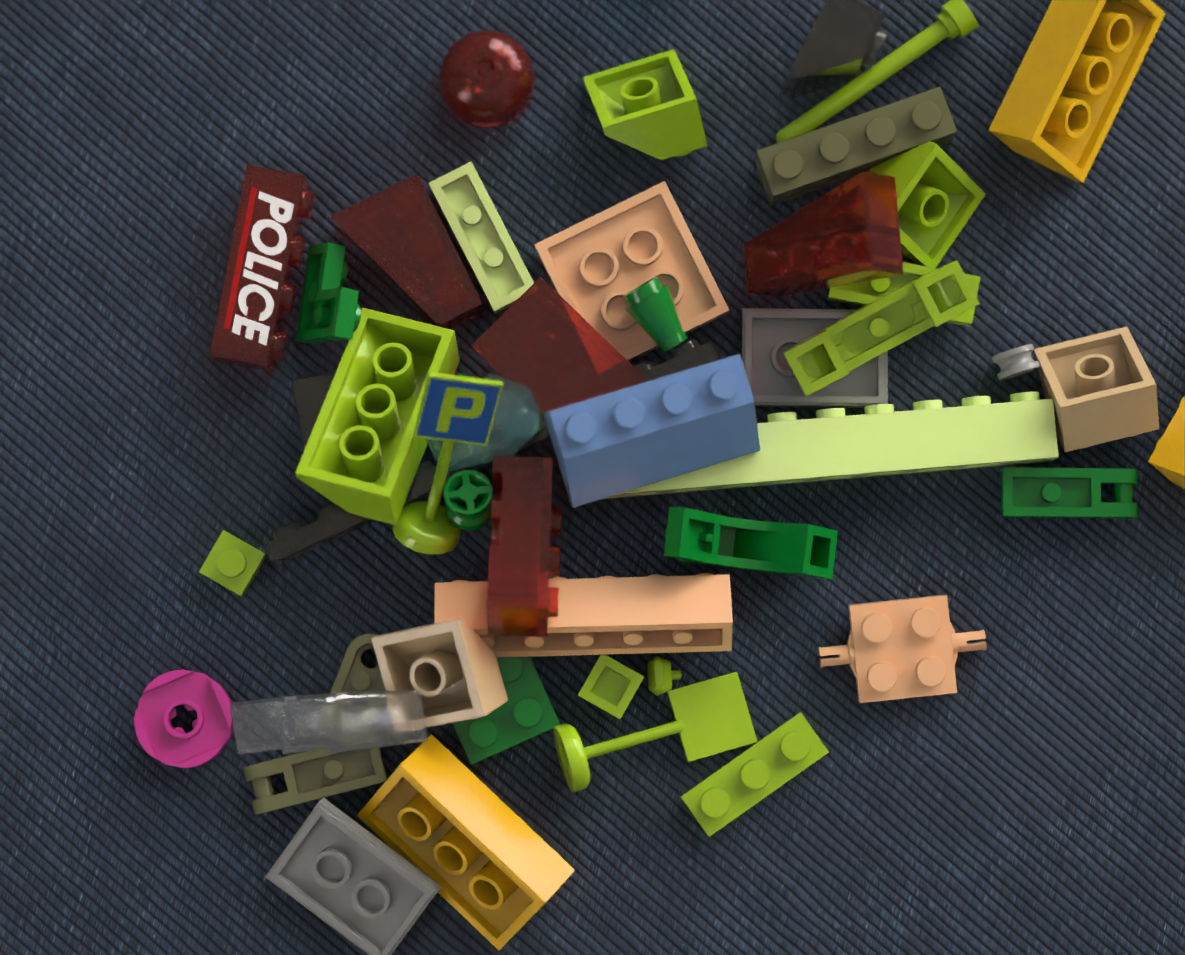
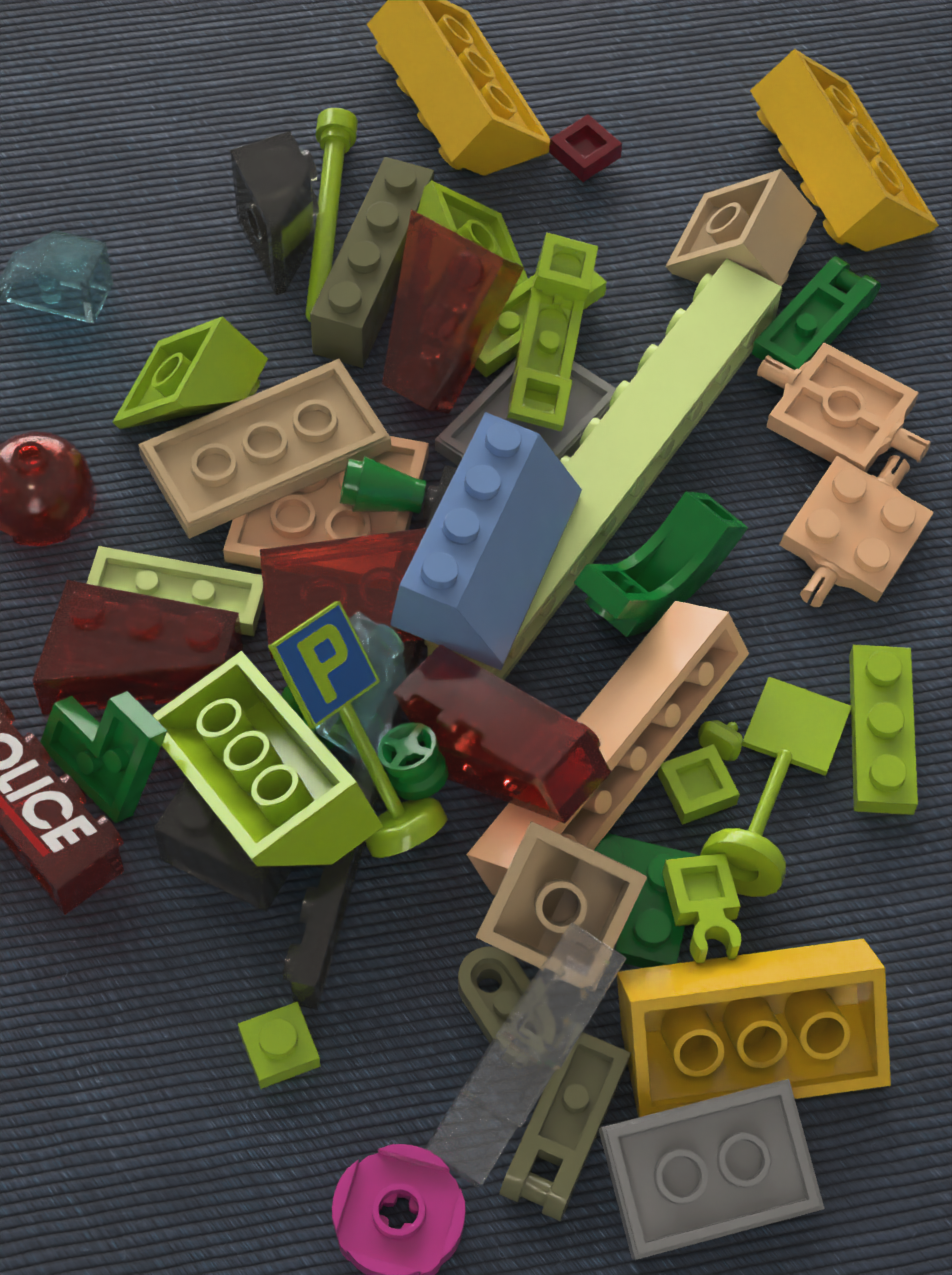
camera: 55 degrees left, 25 degrees down
(521, 751) = (706, 896): none -> lime plate
(632, 206) = (264, 447): none -> tan tile
(996, 569) = (842, 408): none -> light nougat plate
(1015, 362) = (667, 277): light grey bush -> none
(1092, 210) = (585, 147): none -> dark red plate

